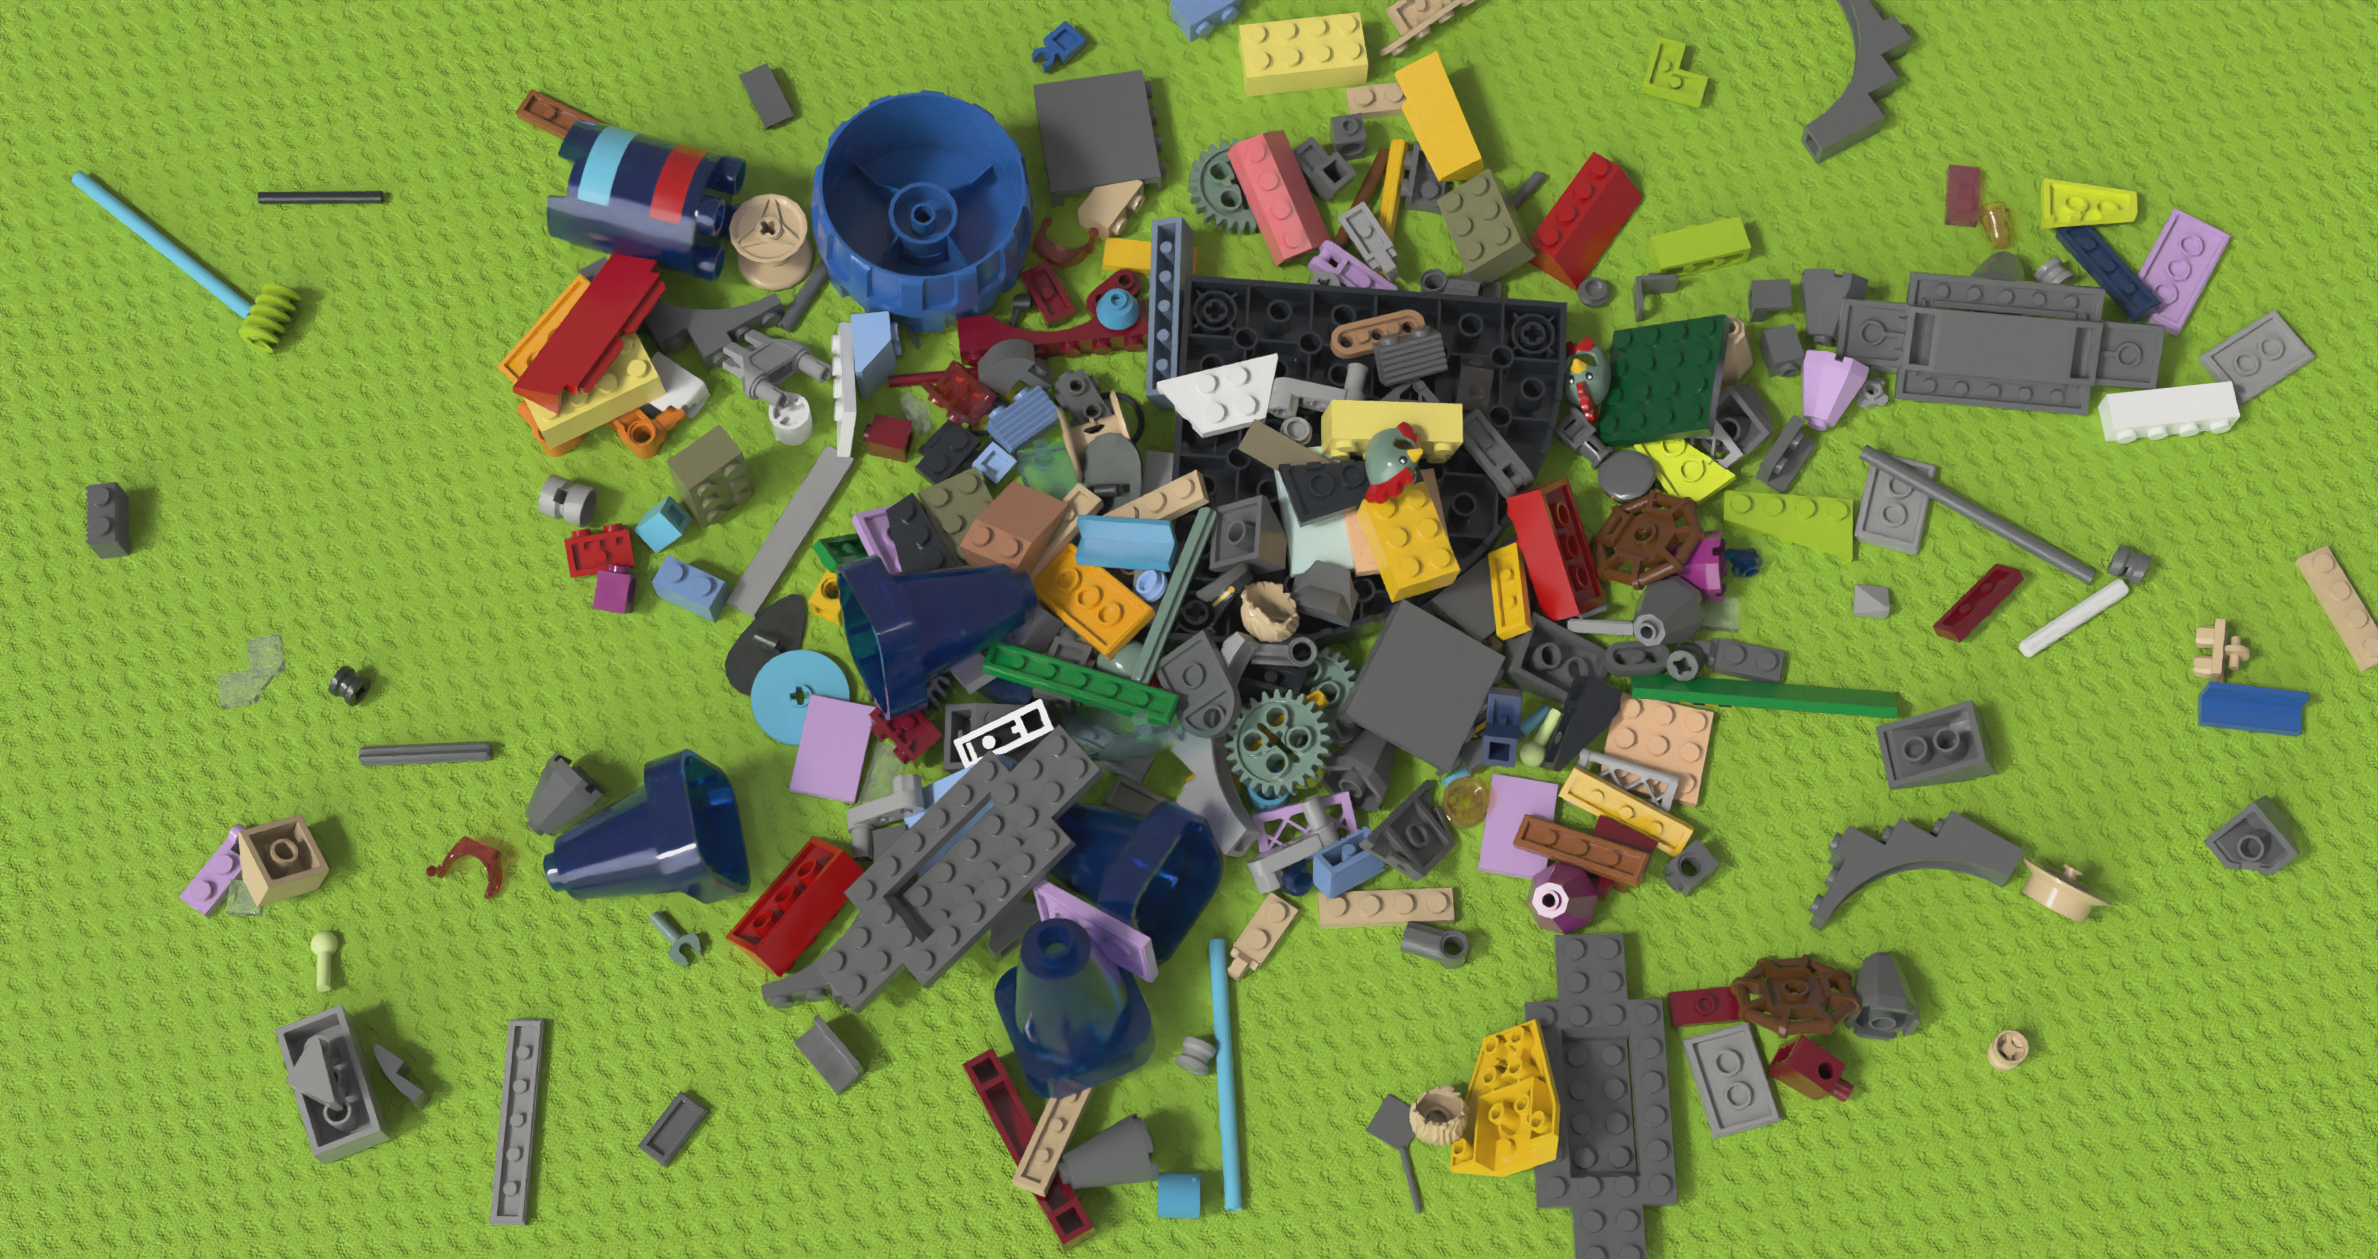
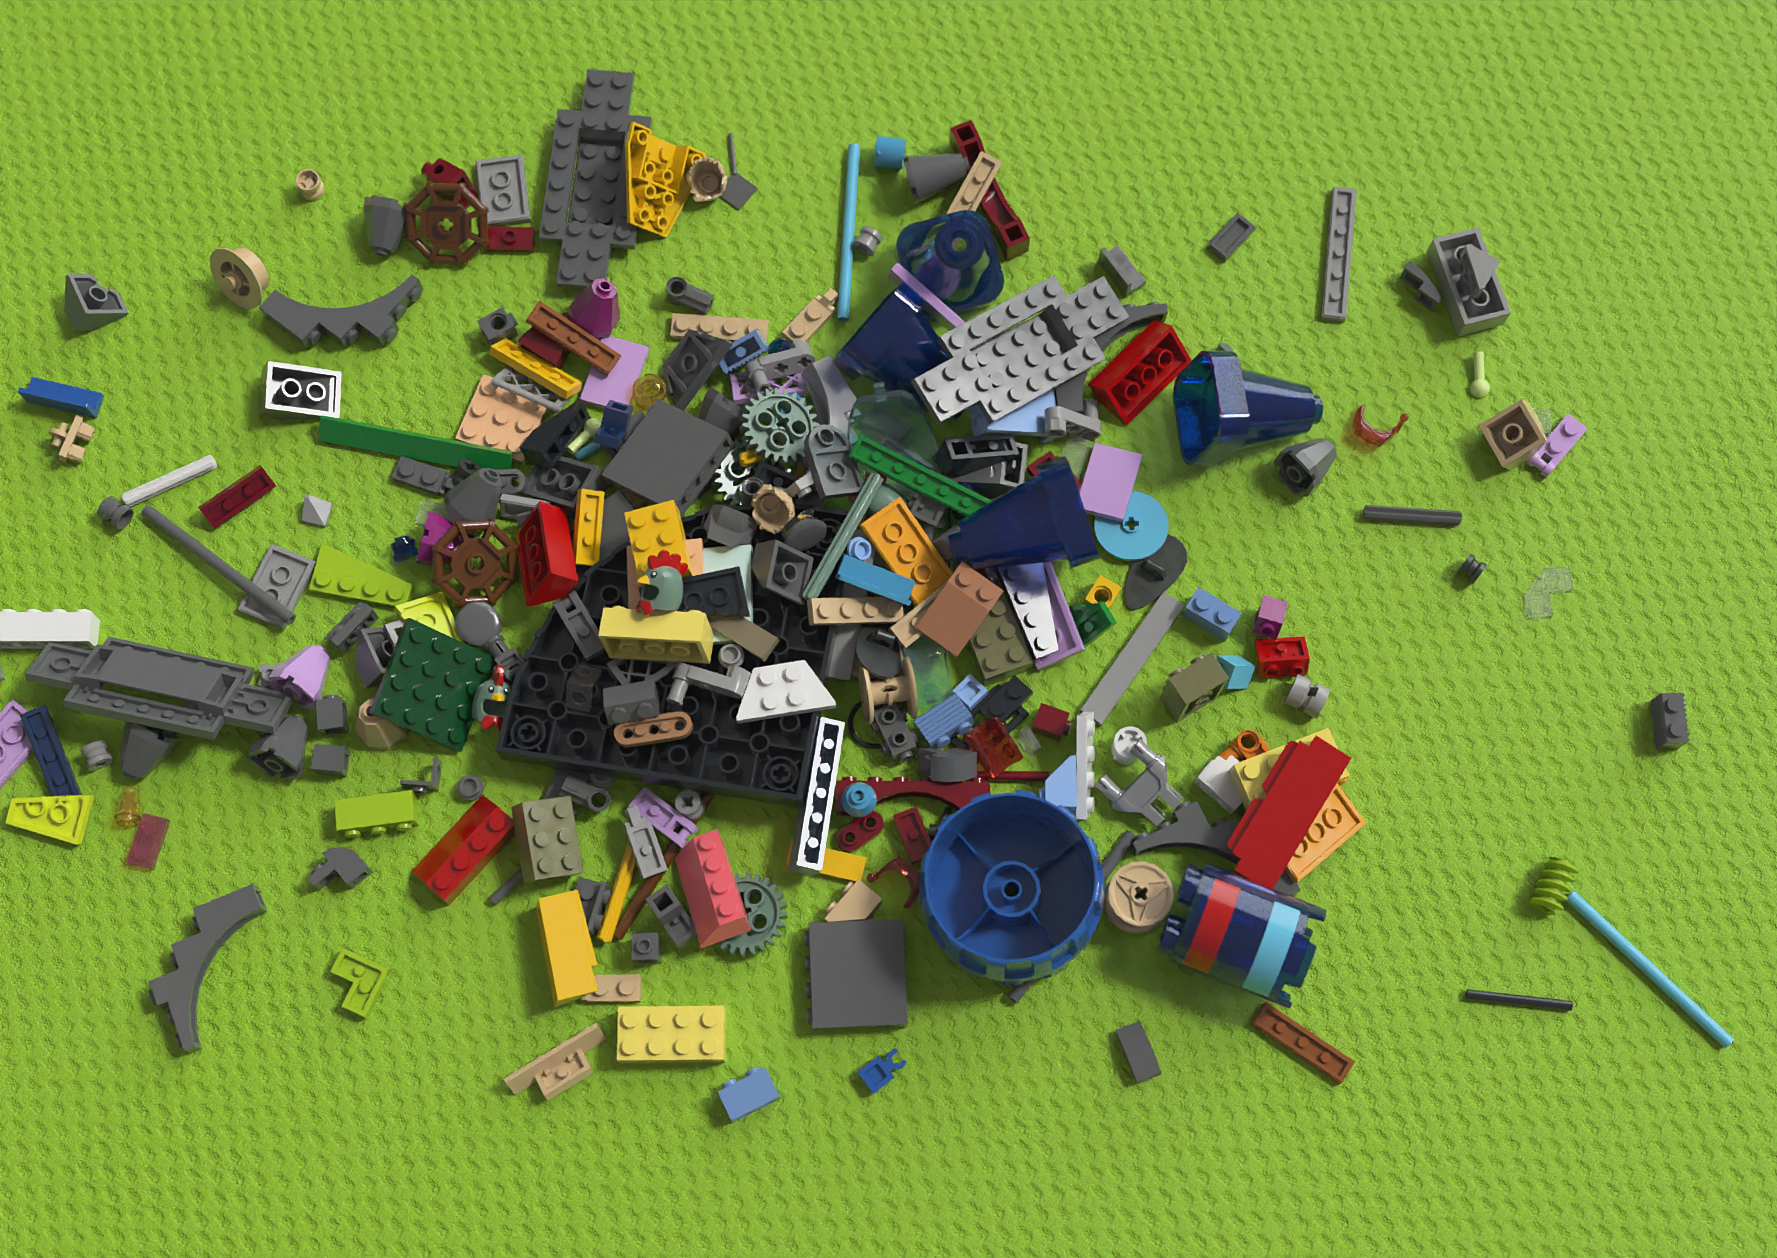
camera: 175 degrees left, 5 degrees up
(1724, 191) = (343, 863): none -> dark grey brick

